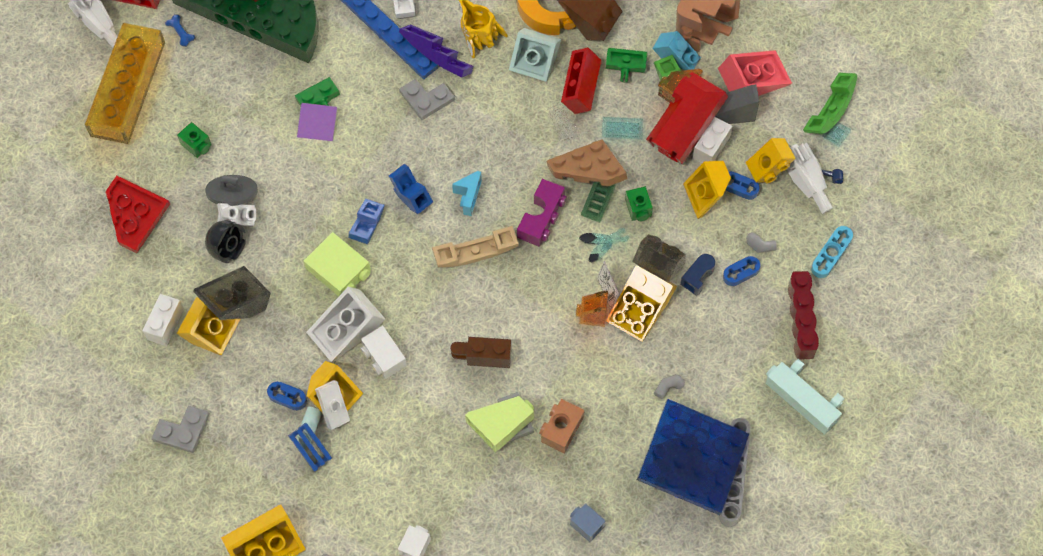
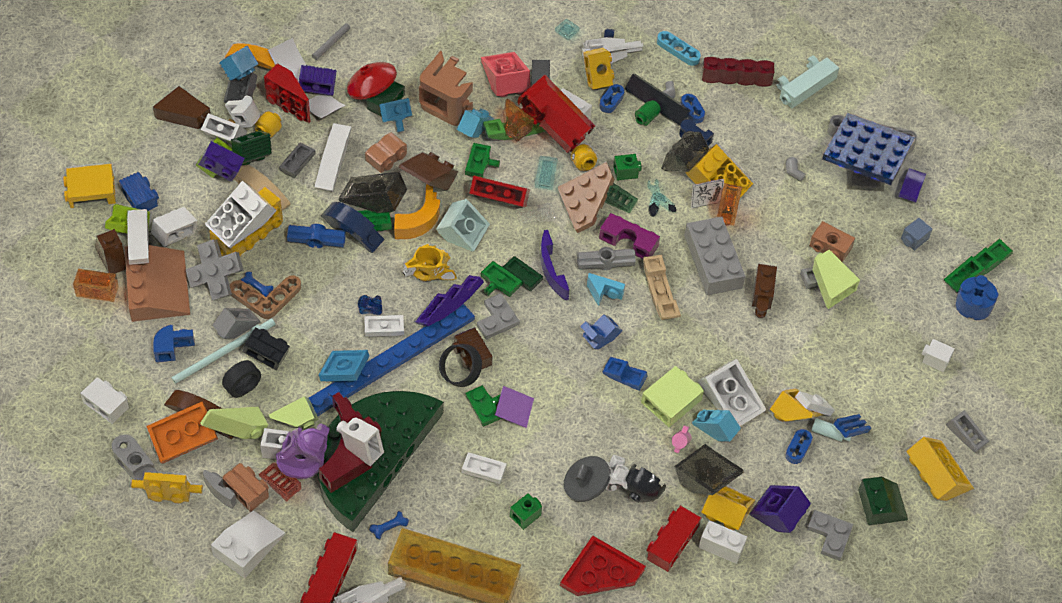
camera: 90 degrees left, 10 degrees down
(167, 274) = (673, 538): none -> red brick
(206, 376) = (781, 507): none -> dark purple slope
(219, 481) = (881, 501): none -> dark green slope
(243, 101) = (484, 468): none -> white plate
(284, 276) = (681, 439): none -> bright pink piece
(304, 310) = (717, 424): none -> medium azure slope
(358, 70) = (476, 365): none -> black tyre
(379, 77) = (472, 338): none -> reddish brown brick
(383, 352) = (762, 365): white brick -> none
(470, 94) = (500, 279): none -> green plate
(482, 115) = (528, 276): none -> dark green plate
(507, 181) = (606, 258): none -> light grey piece
(517, 131) = (557, 283): none -> dark purple slope
(525, 298) = (714, 256): none -> light grey brick
(645, 160) = (584, 157): none -> yellow head
(664, 520) = (912, 185): none -> dark purple slope
(707, 186) = (618, 115): yellow slope -> none
(722, 221) = (647, 112): none -> green brick
(744, 231) = (648, 92): none -> black tile
(836, 105) = (543, 24): bright green slope -> none

